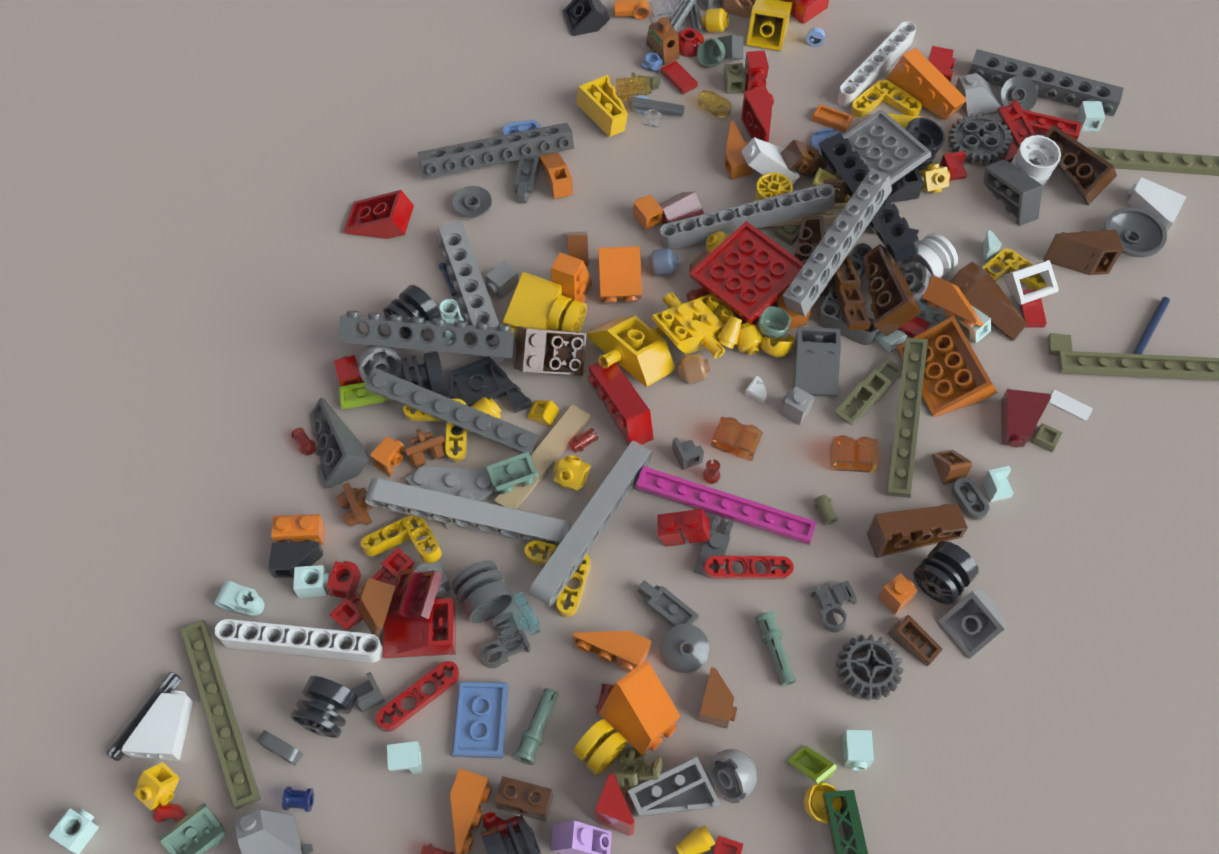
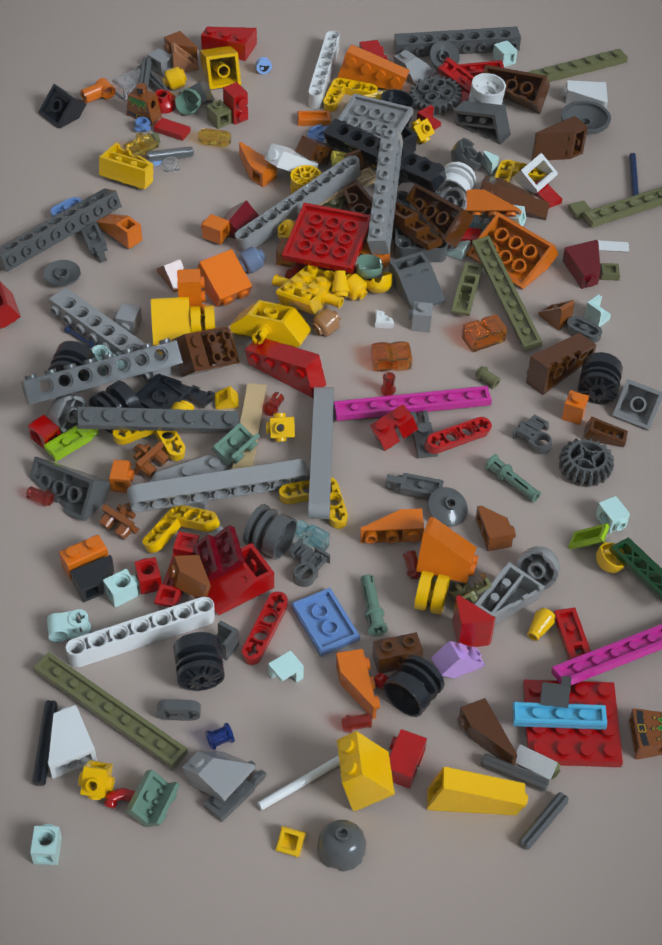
camera: 30 degrees left, 10 degrees down
(687, 453) = (358, 382): dark grey panel -> none
(757, 113) = (258, 131): red slope -> none
(965, 229) = (466, 154): none -> dark grey cylinder

